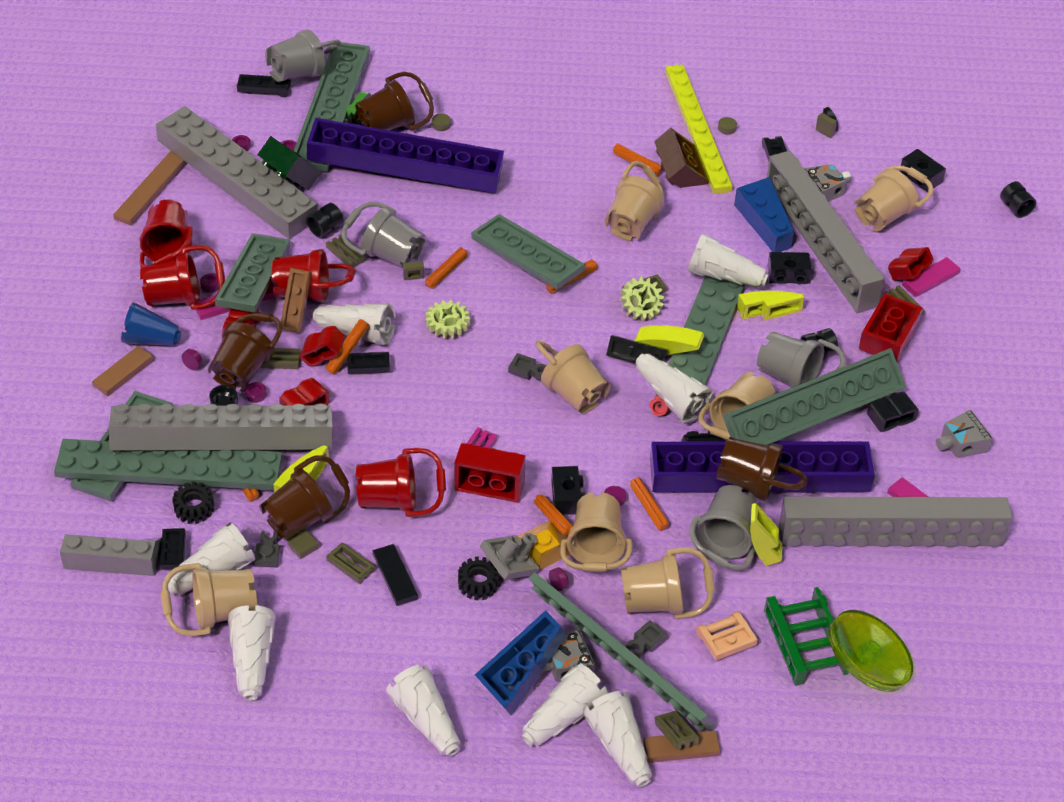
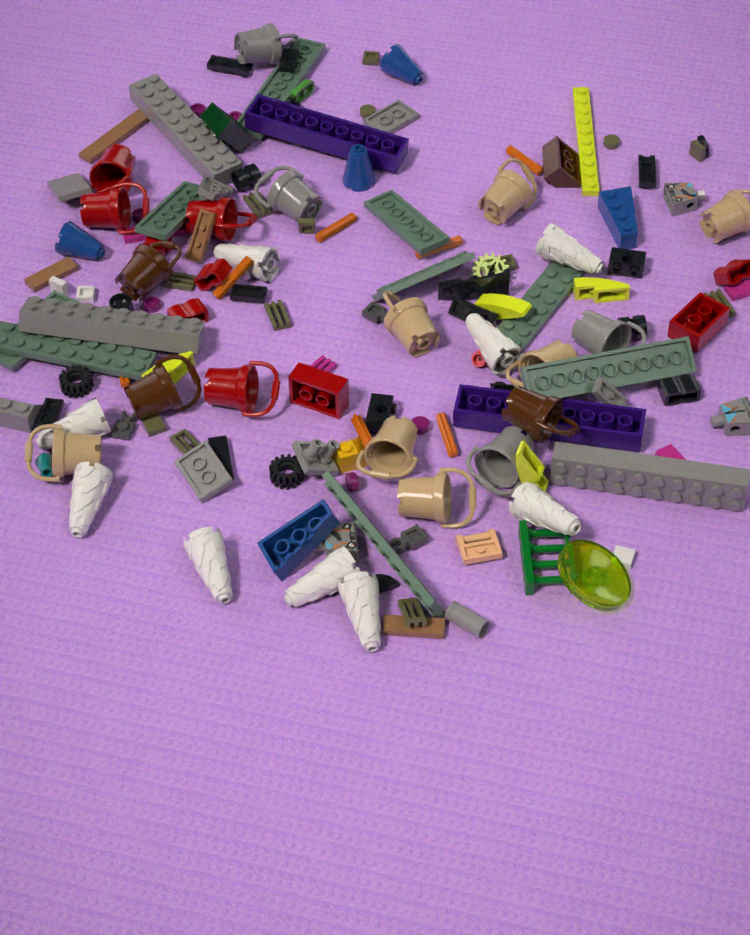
camera: 15 degrees right, 0 degrees up
(116, 259) = (69, 187): none -> light grey tile
(138, 384) = (58, 285): none -> white tile
(172, 390) = (85, 294): none -> white tile
(186, 614) = (44, 464): none -> teal cone
(192, 359) = (107, 272): magenta tile -> none
(292, 240) = (213, 189): none -> light grey wing
(334, 71) = (288, 60): none -> black plate
(381, 593) = (204, 471): none -> light grey tile
(392, 107) = (324, 92): reddish brown piece -> none
(403, 374) = (274, 306): none -> olive tile
(425, 57) = (371, 58): none -> olive tile
(449, 319) = (323, 267): yellowish green gear -> none
(455, 195) = (358, 170): none -> blue cone
(466, 63) = (401, 65): none -> blue cone
(471, 126) = (392, 117): none -> light grey tile
(570, 313) = (424, 274): none -> sand green plate
(630, 319) = (475, 286): none -> black wing
(636, 696) = (385, 583): none -> black tile
(741, 728) = (467, 619): none -> light grey pin
(792, 583) = (541, 510): none -> white cone
(821, 428) = (607, 393): none -> light grey hinge
(825, 233) = (665, 236): light grey brick -> none
(893, 618) = (625, 555): none -> white tile

